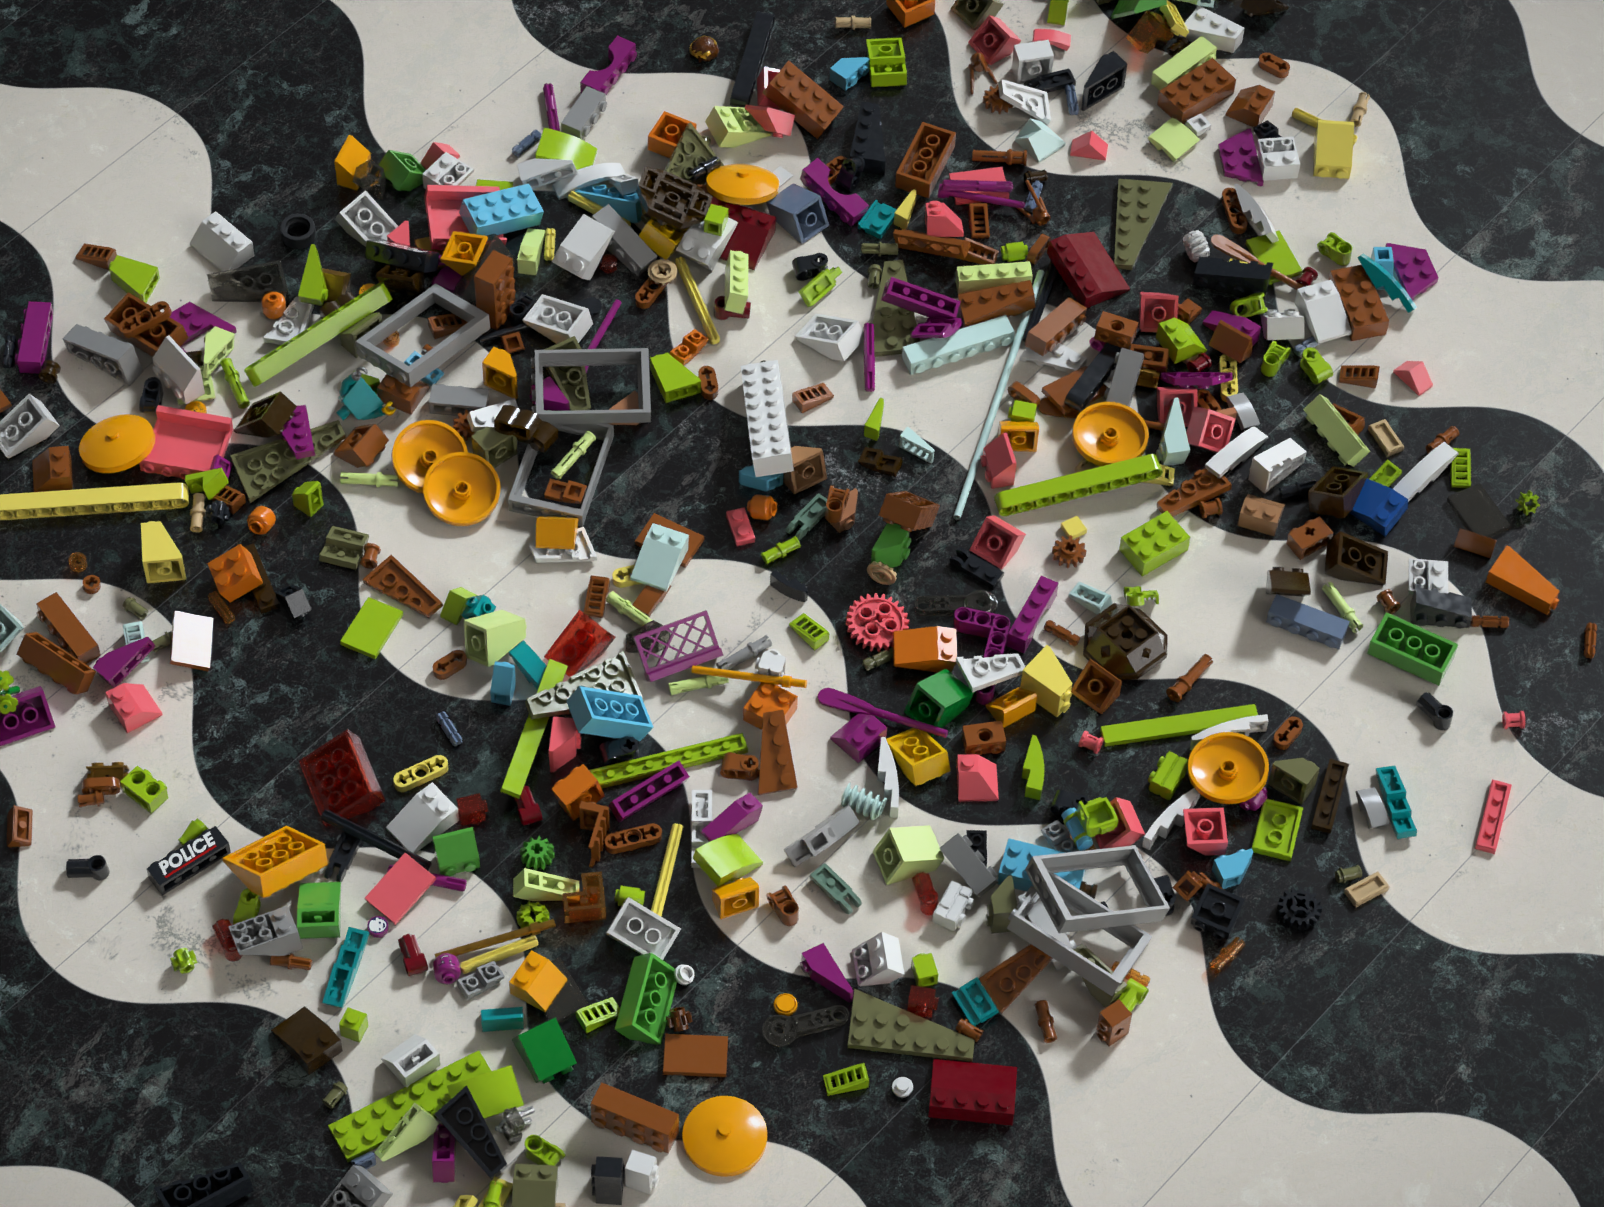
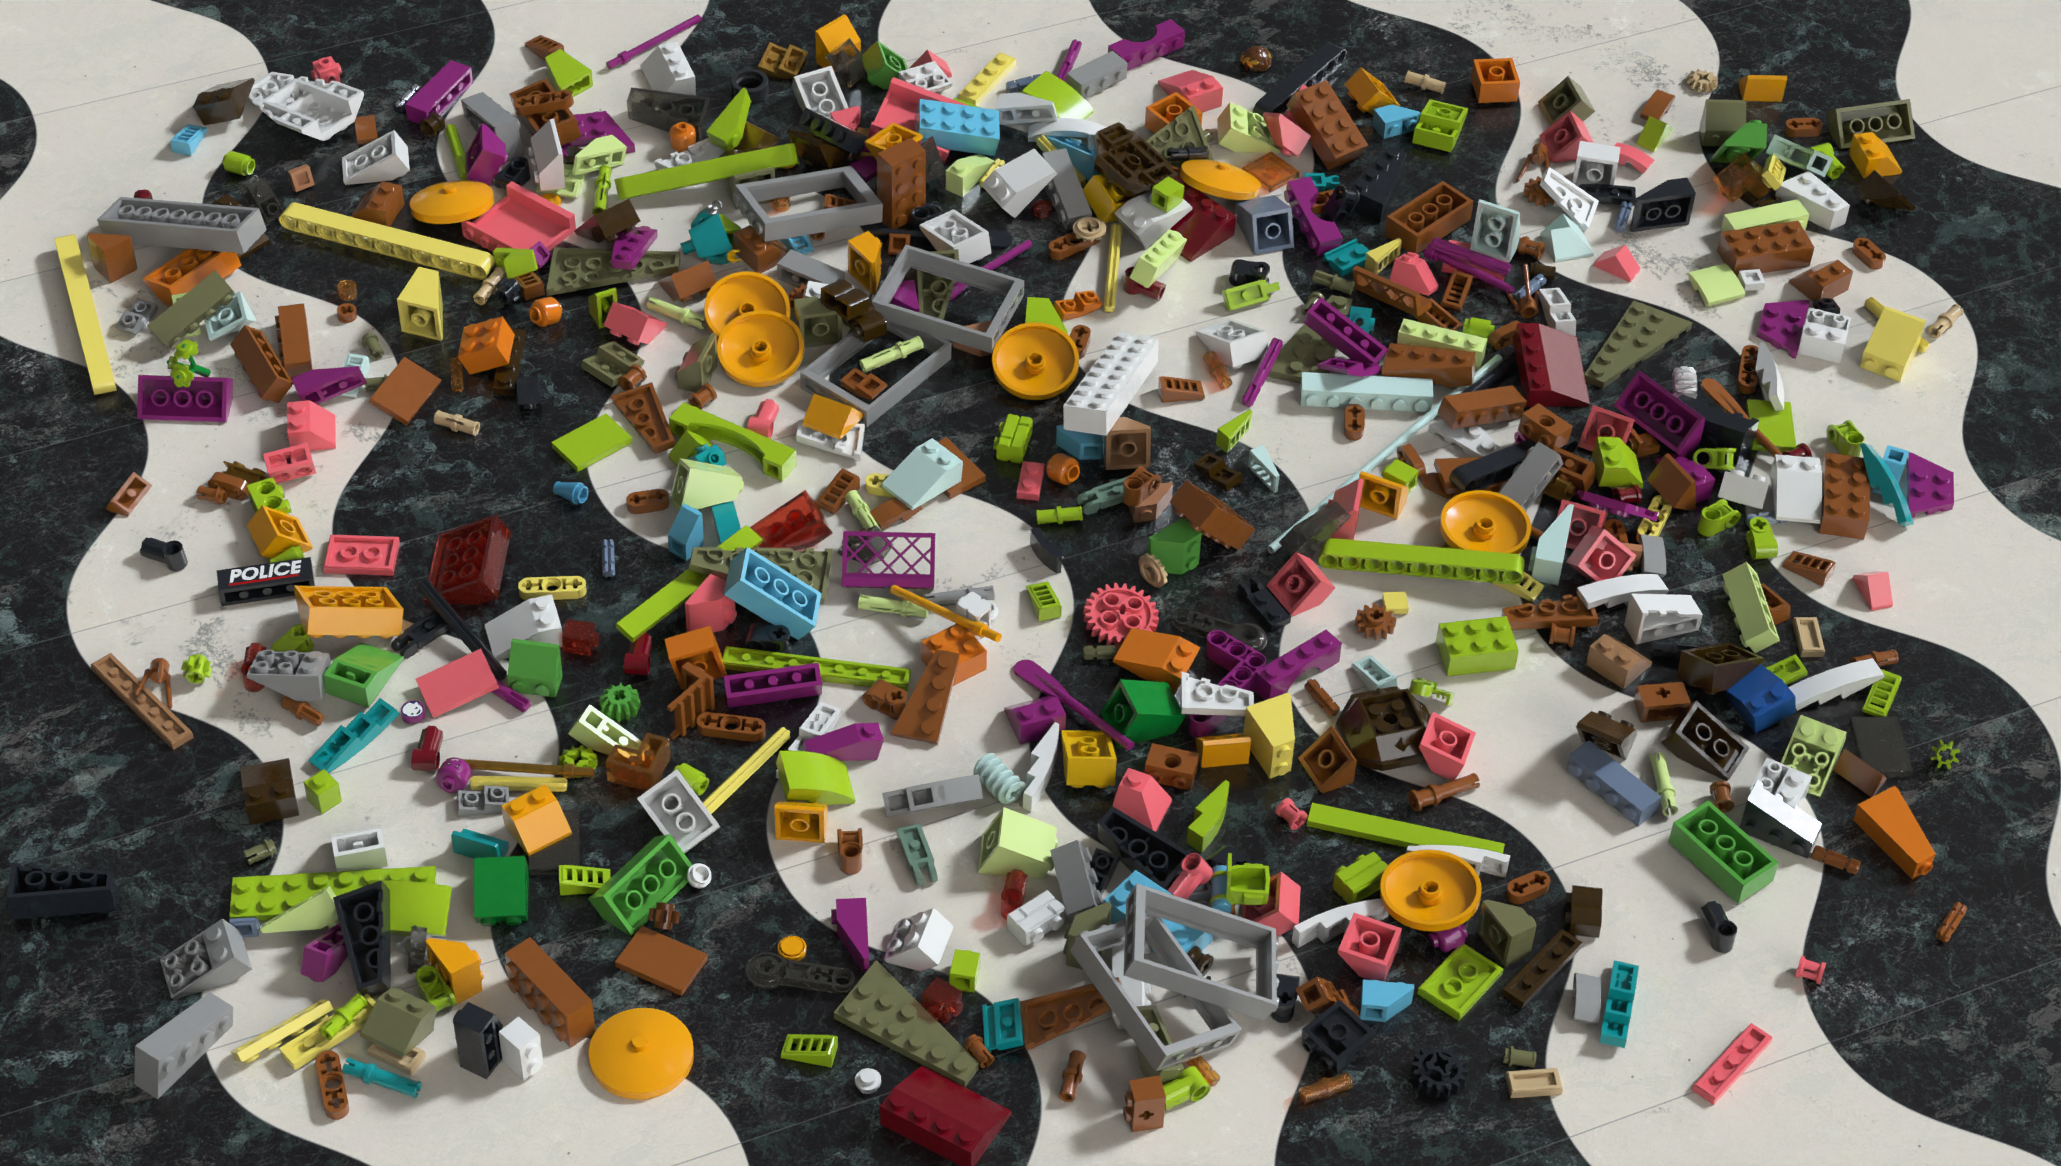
camera: 25 degrees right, 10 degrees down
(83, 386) = (457, 150): none -> lime axle
(120, 389) = (485, 156): none -> magenta slope
(141, 747) = (289, 463): none -> coral brick
(153, 1005) = (145, 705): none -> medium nougat tile
(155, 976) = (158, 673): none -> dark orange plant
(170, 814) = (277, 532): none -> light orange slope
(172, 238) = (625, 56): none -> magenta bar
(248, 804) = (361, 555): none -> coral tile
(264, 652) = (446, 420): none -> tan pin
(309, 195) = (781, 61): none -> pearl gold slope
(341, 504) = (633, 324): none -> coral slope
(384, 680) = (572, 491): none -> dark azure cone
(418, 524) = (698, 364): none -> olive slope
(437, 551) = (702, 396): none -> dark orange bush
(492, 149) = (987, 78): none -> light yellow plate
(500, 556) = (764, 418): none -> coral piece
(526, 584) = (775, 457): none -> lime arch
(552, 1125) = (456, 966): none -> light orange slope
(669, 97) = (1196, 87): none -> coral slope
(688, 416) = (1035, 361): none -> light orange dish
(708, 494) = (1013, 438): none -> lime brick
(774, 157) = (1272, 171): none -> clear orange tile
(816, 51) = (1369, 92): none -> light orange slope
(817, 152) = (1322, 182): none -> teal plate
(831, 367) = (1217, 370): none -> clear orange pin
(922, 274) = (1363, 314): none -> teal brick
(957, 376) = (1350, 421): none -> dark orange beam
(988, 491) = (1314, 531): none -> clear smoke slope
(989, 158) = (1496, 231): none -> light aqua slope
(1003, 818) = (1141, 848): none -> black wedge
(1050, 831) = (1194, 873): none -> coral piece
(1066, 211) = (1557, 310): none -> white slope
(1178, 641) = (1445, 746): none -> coral slope
(1194, 282) = (1661, 414): none -> magenta slope
(1338, 737) = (1584, 911): none -> dark brown brick
(1436, 538) = (1814, 751): none -> yellowish green slope

